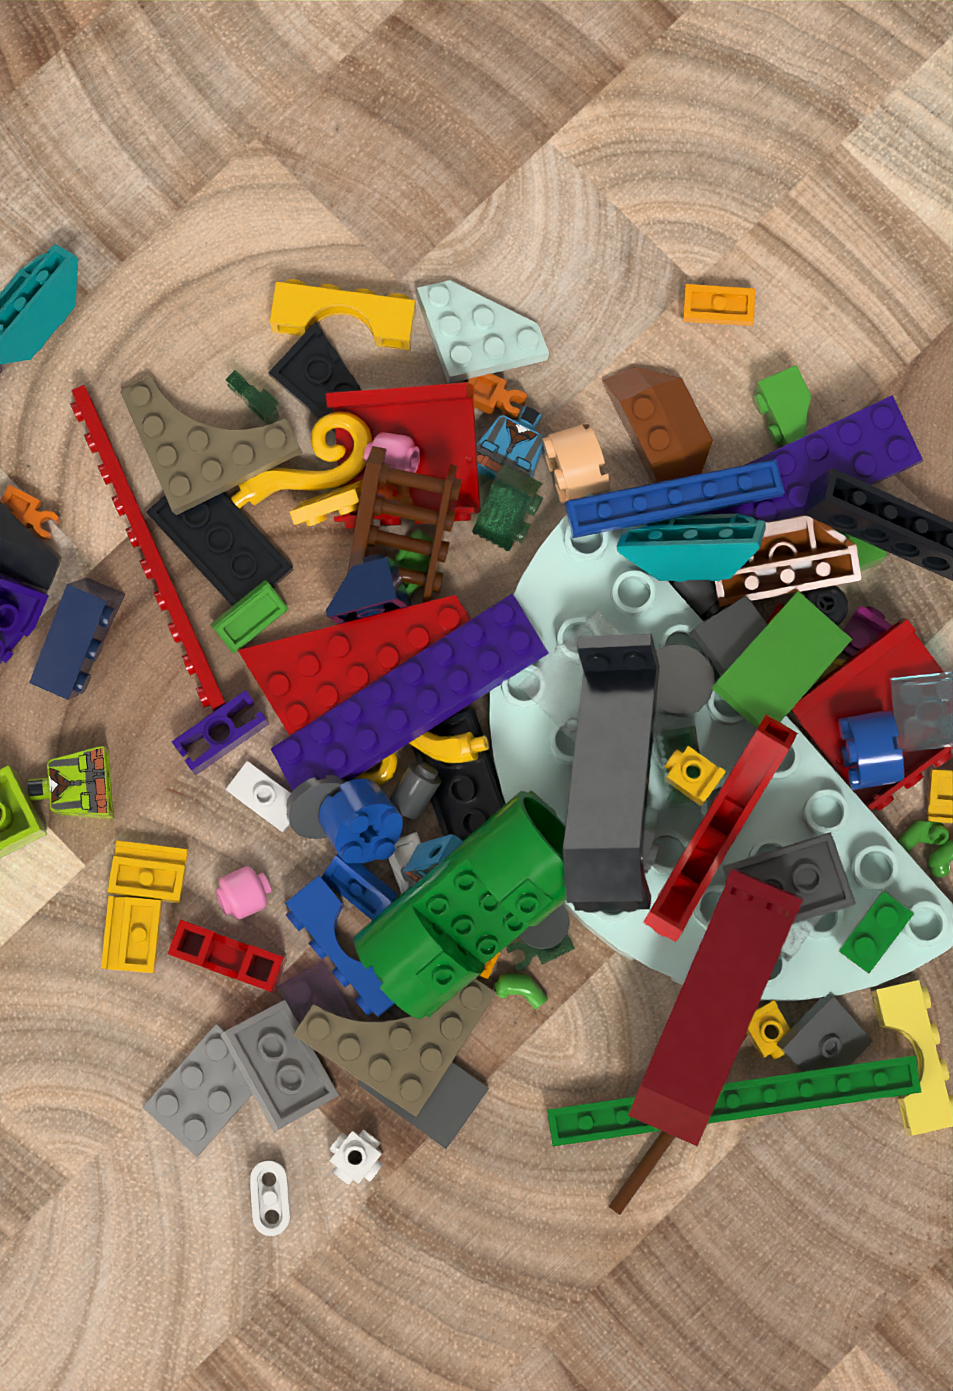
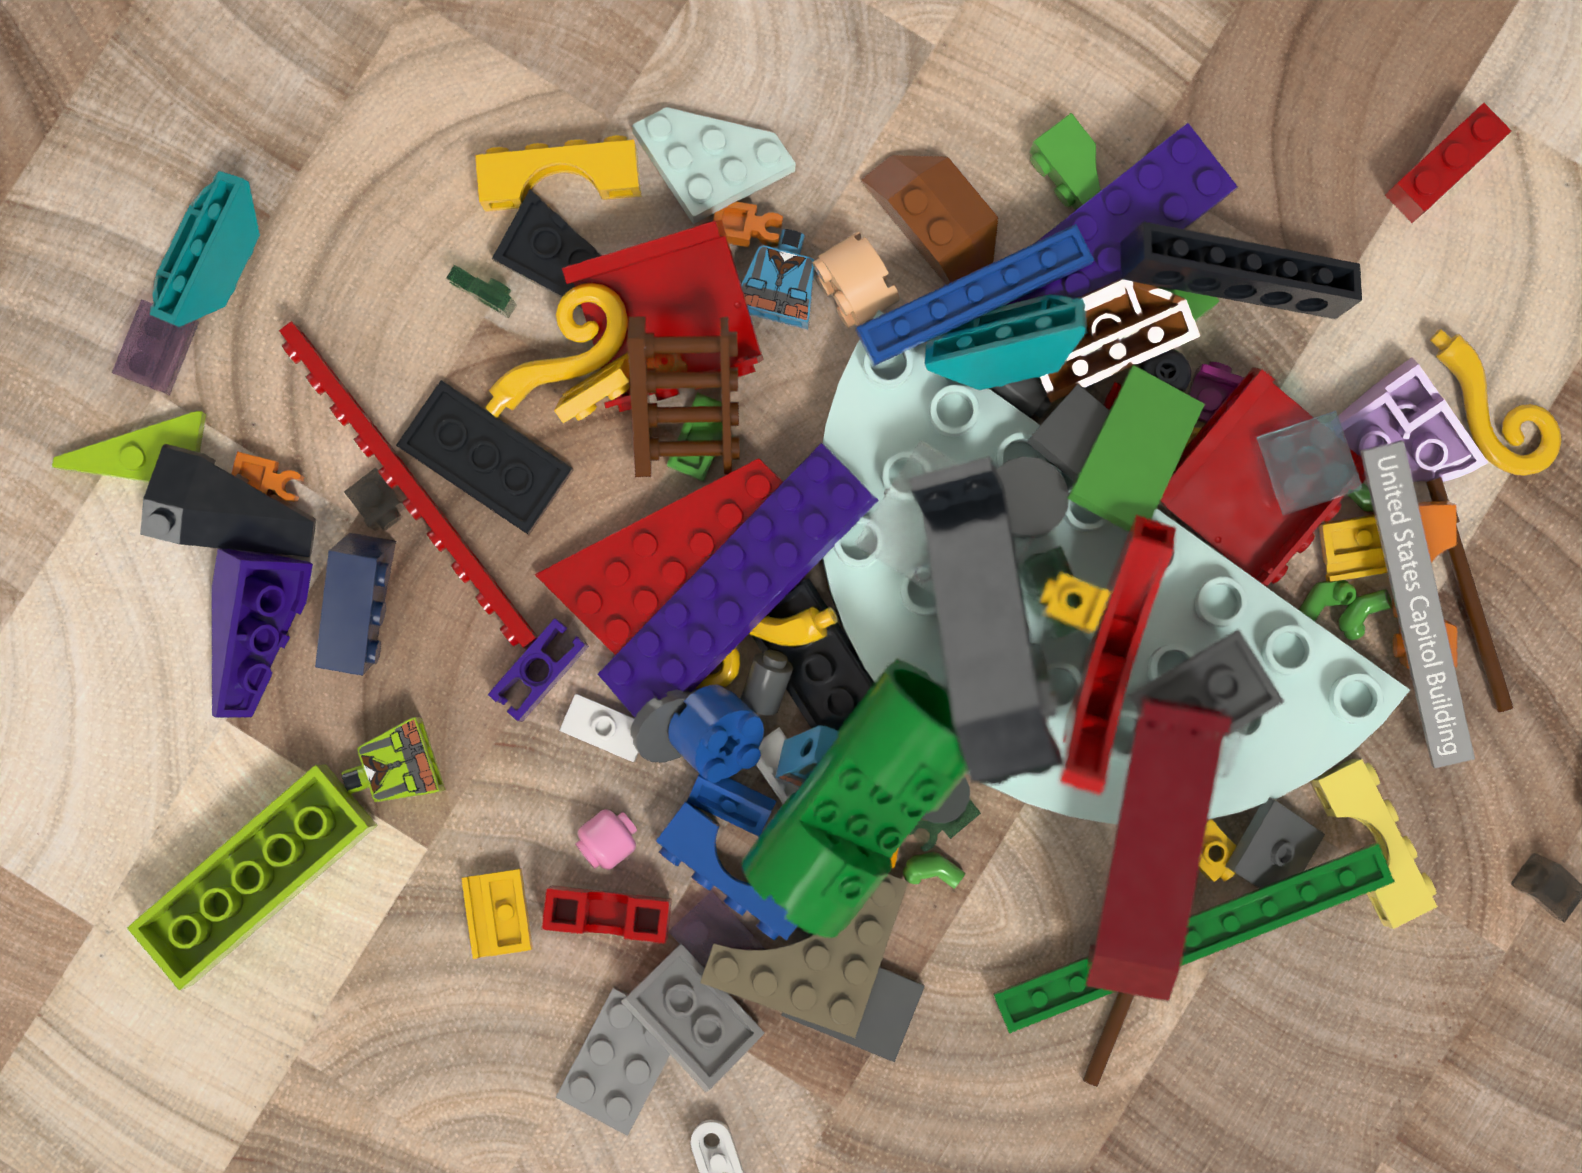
camera: 10 degrees left, 5 degrees up
(117, 555) = (376, 501): none -> clear smoke bracket
(148, 871) = (497, 840): yellow plate -> none
(200, 459) = (439, 374): dark tan plate -> none
(249, 616) = (538, 534): bright green tile -> none
(369, 591) = (663, 476): dark blue slope -> none
(370, 1153) = (804, 1080): white brick -> none
(400, 451) = (661, 315): bright pink head -> none
(508, 507) = (792, 347): clear green brick -> none
(719, 305) = (969, 64): light orange plate -> none
(871, 749) = (1254, 521): blue brick -> none
(876, 931) = (1308, 721): green brick -> none

